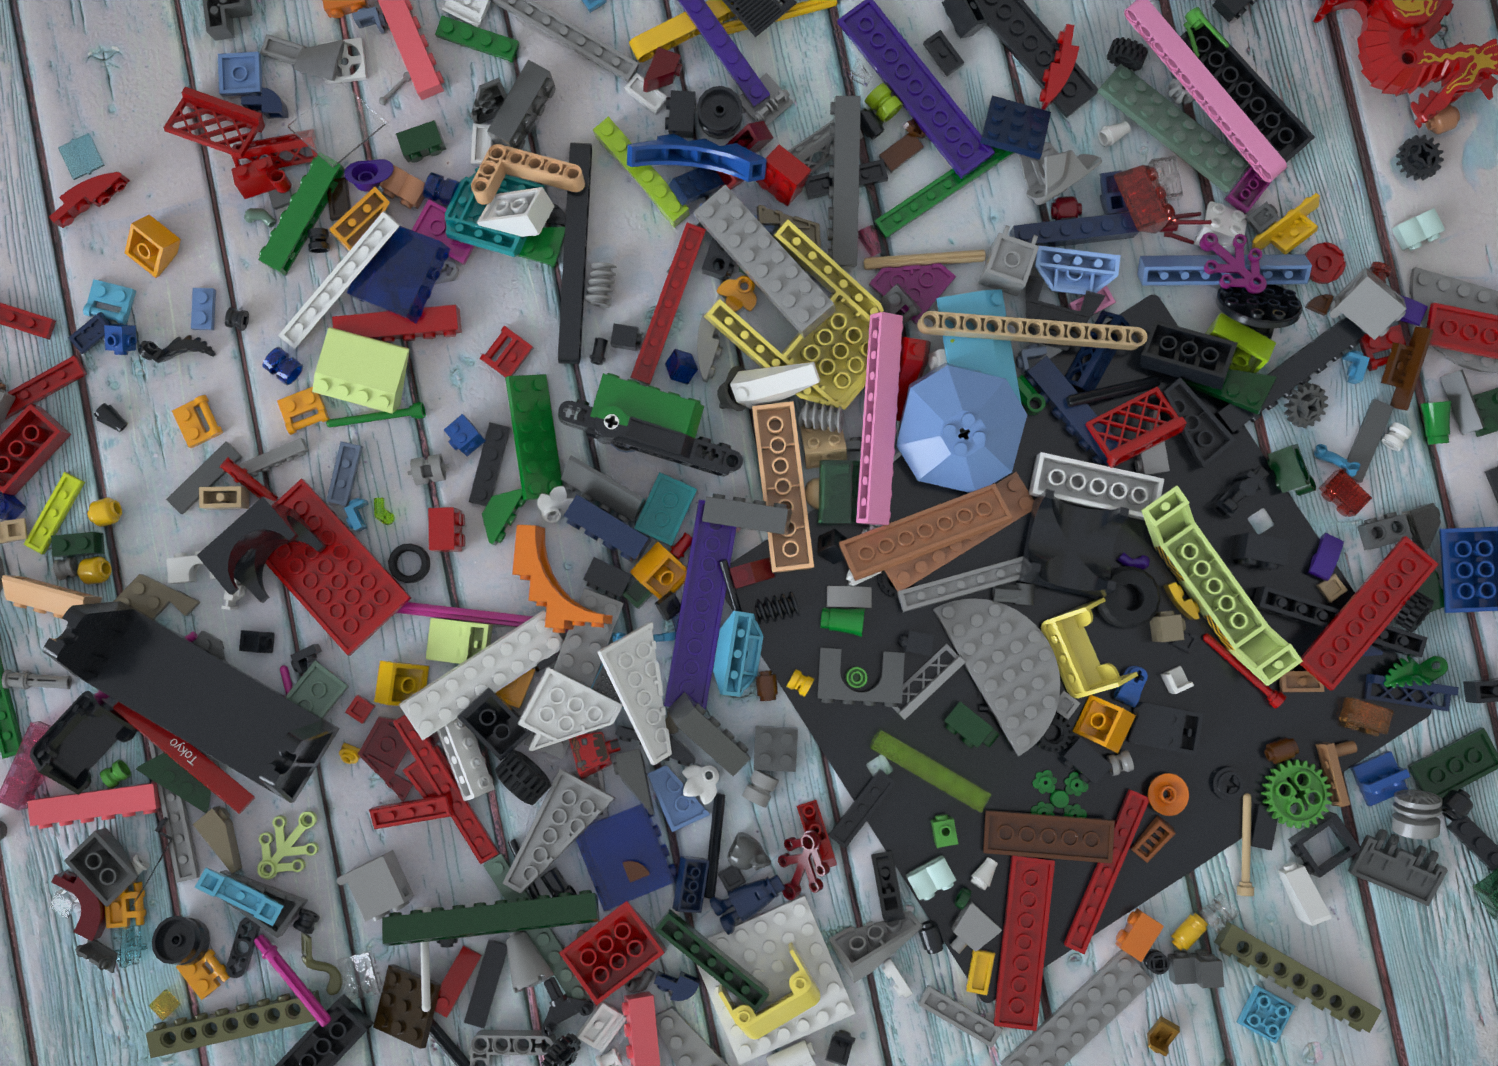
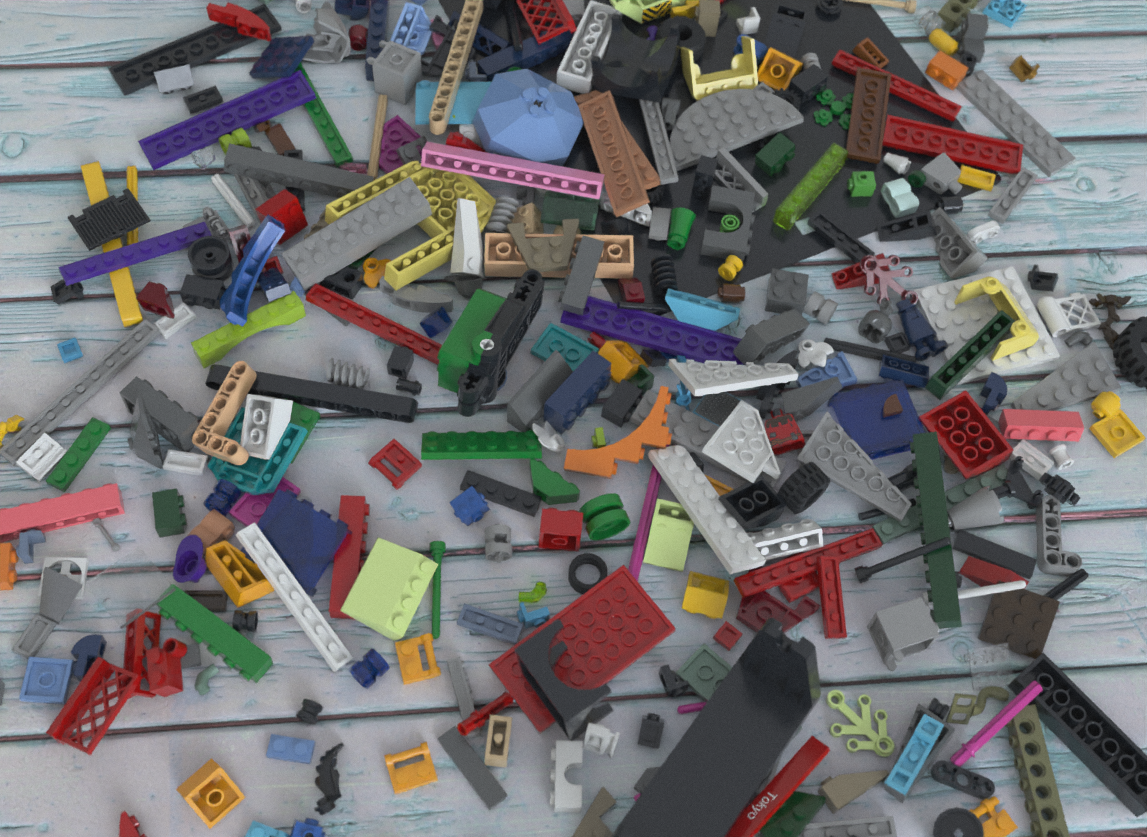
camera: 90 degrees left, 25 degrees down
(444, 846) = (864, 573): none -> black piece
(464, 572) = (604, 516): none -> green wheel
(559, 557) = (598, 439): none -> lime plate
(773, 472) = (545, 253): none -> dark tan wing
(808, 119) = (232, 200): none -> white axle
(1177, 794) = (837, 38): orange dish -> none

